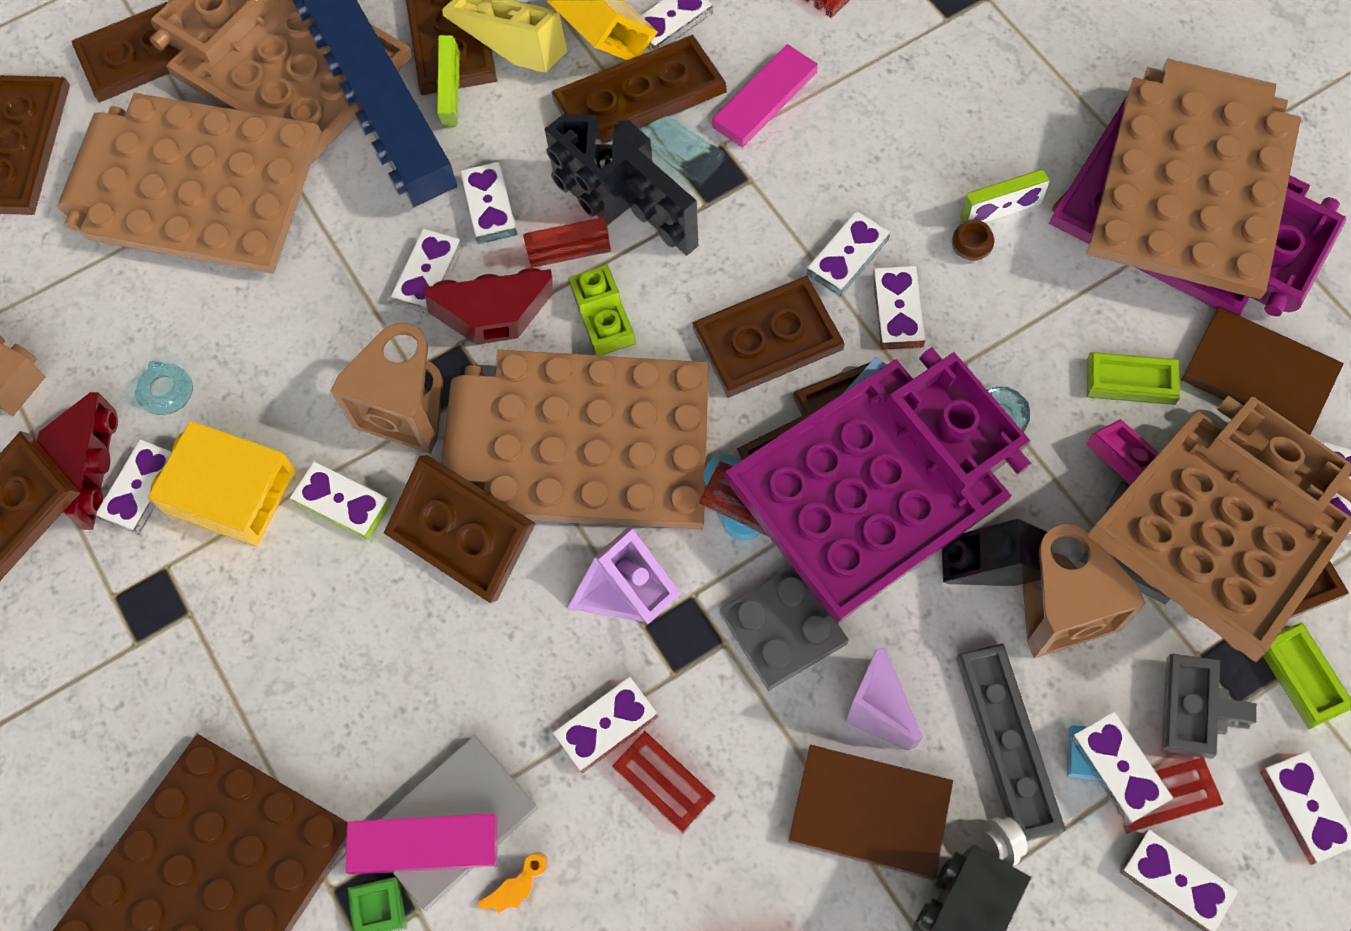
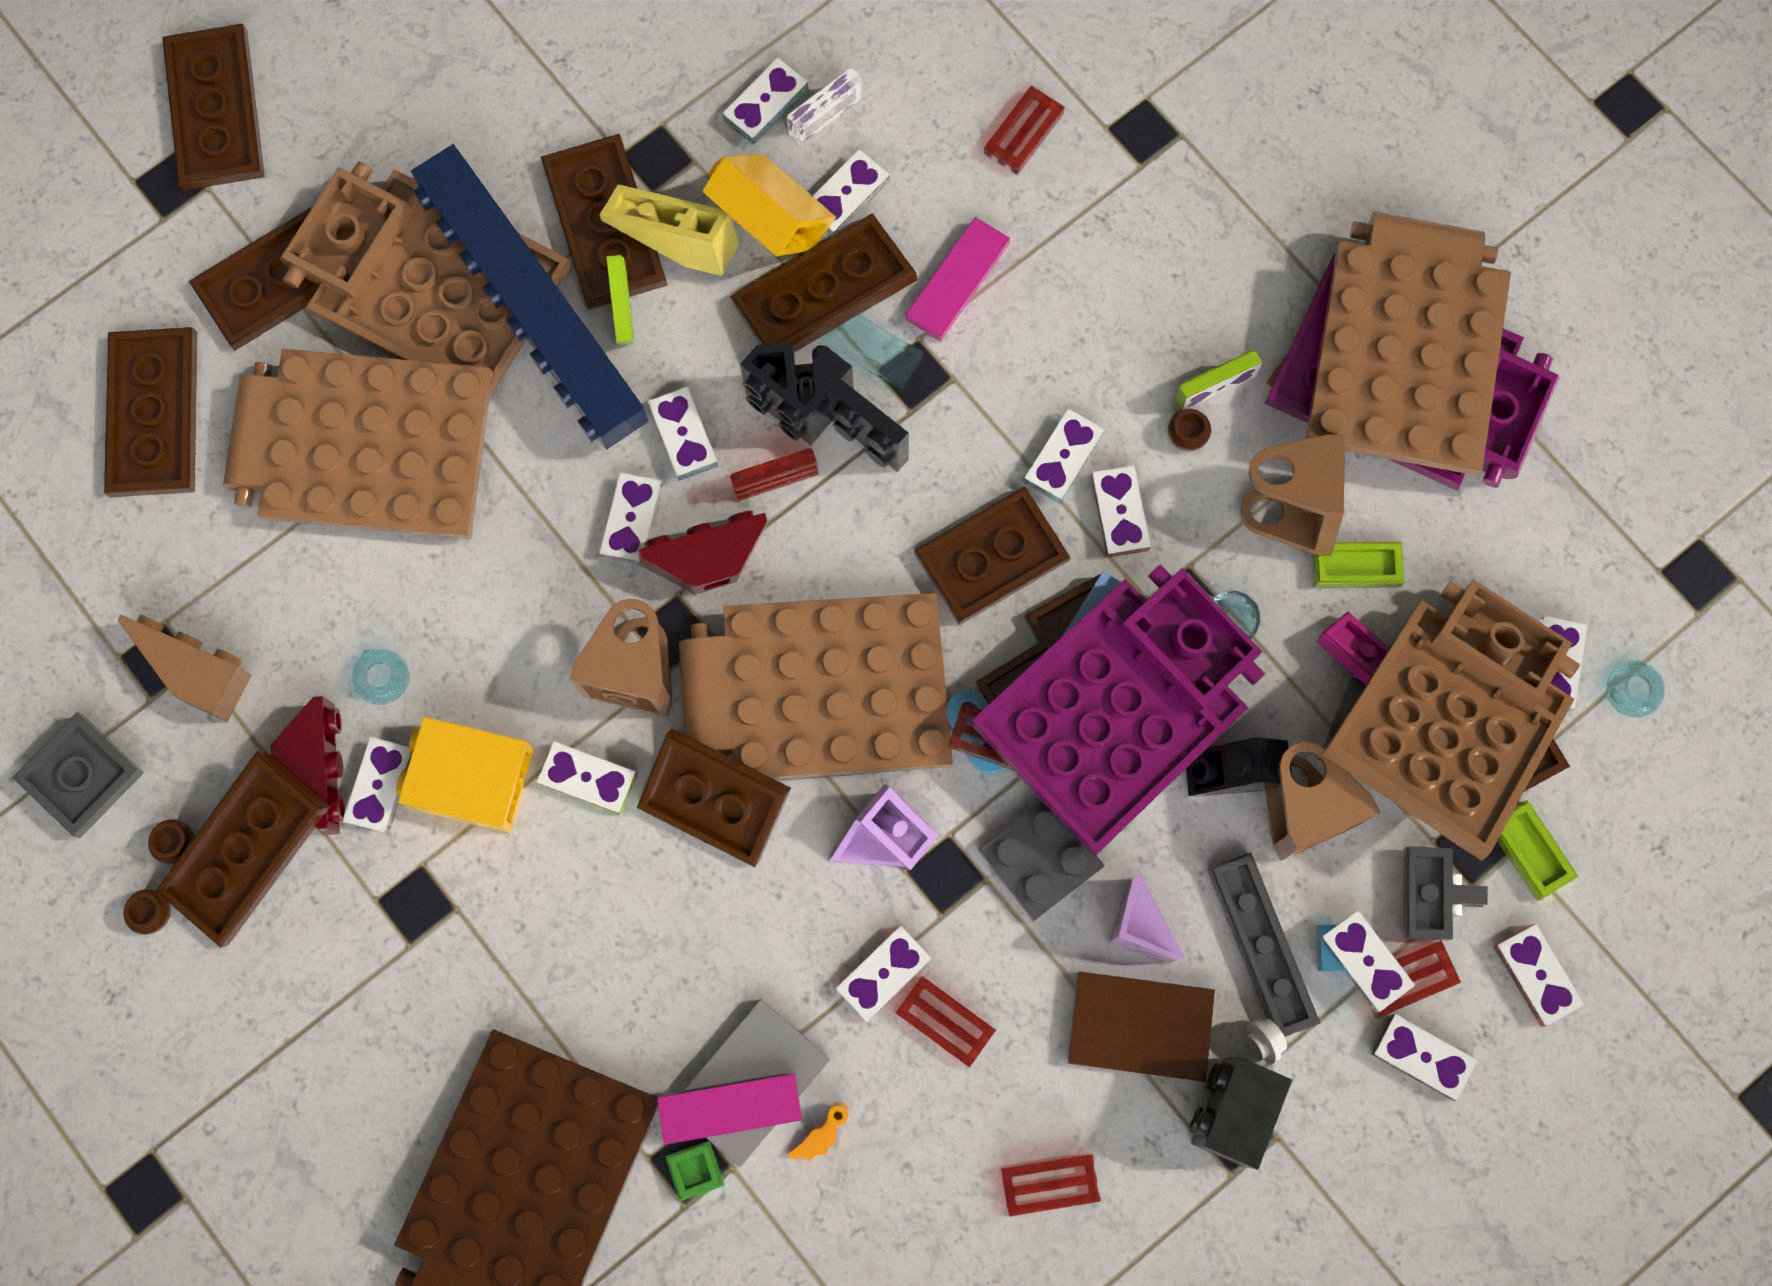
camera: 10 degrees left, 10 degrees up
(602, 310) = (819, 545): lime slope -> none
(1093, 301) = (1309, 500): none -> medium nougat hose
(1251, 360) = (1483, 542): reddish brown tile -> none

